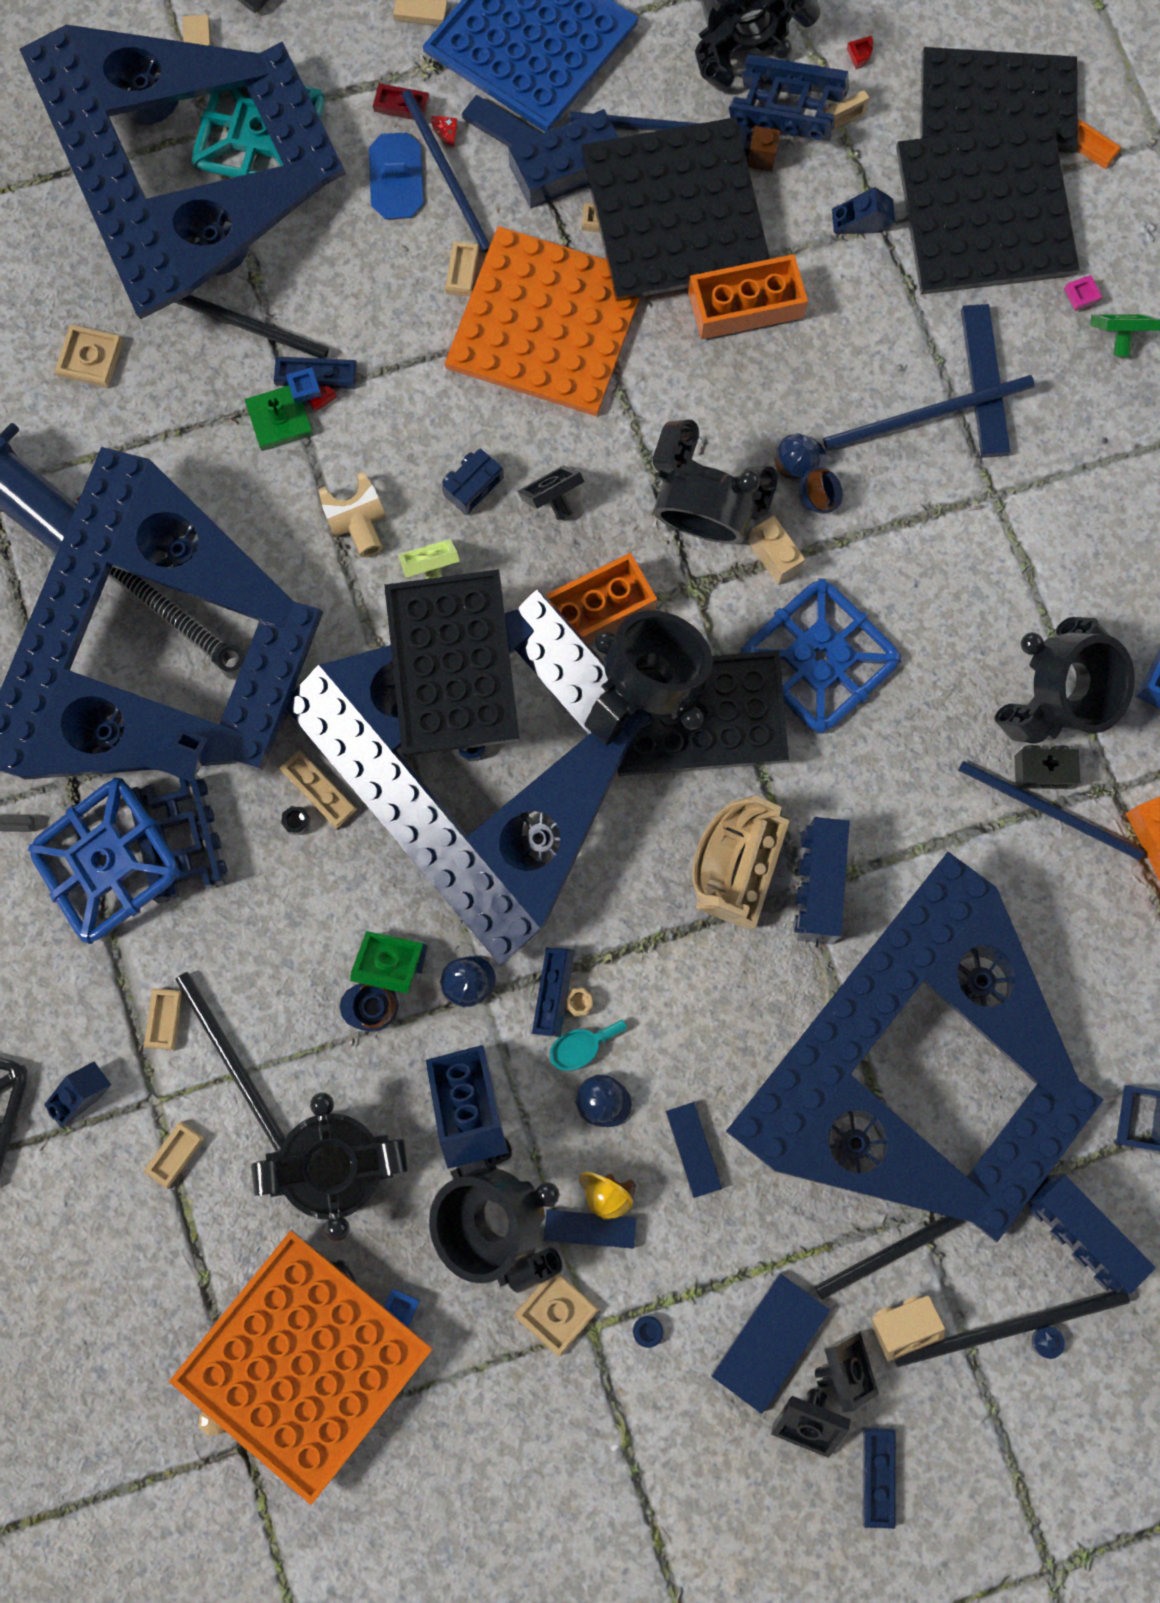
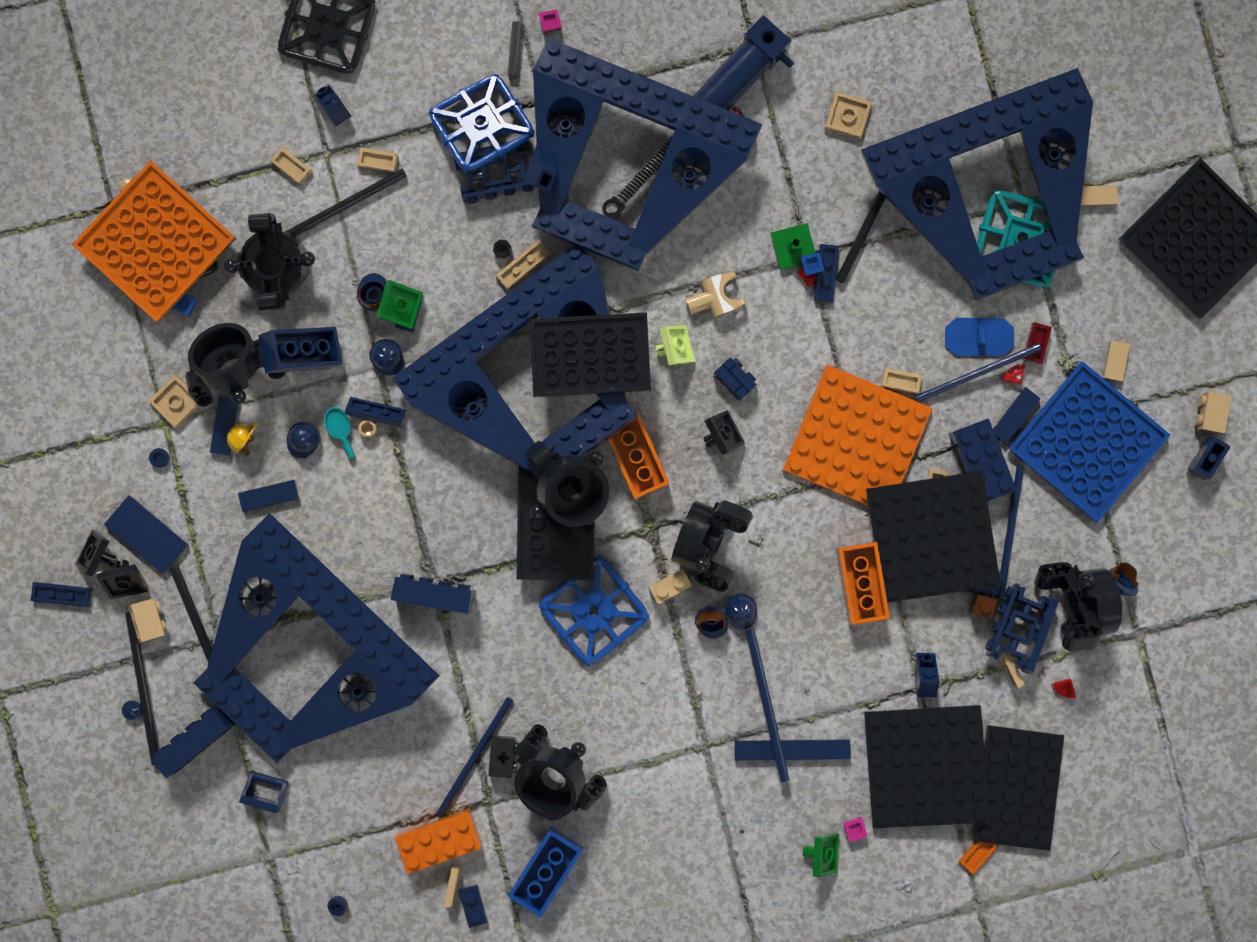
camera: 90 degrees right, 10 degrees up
(718, 854) = (455, 526): tan piece -> none

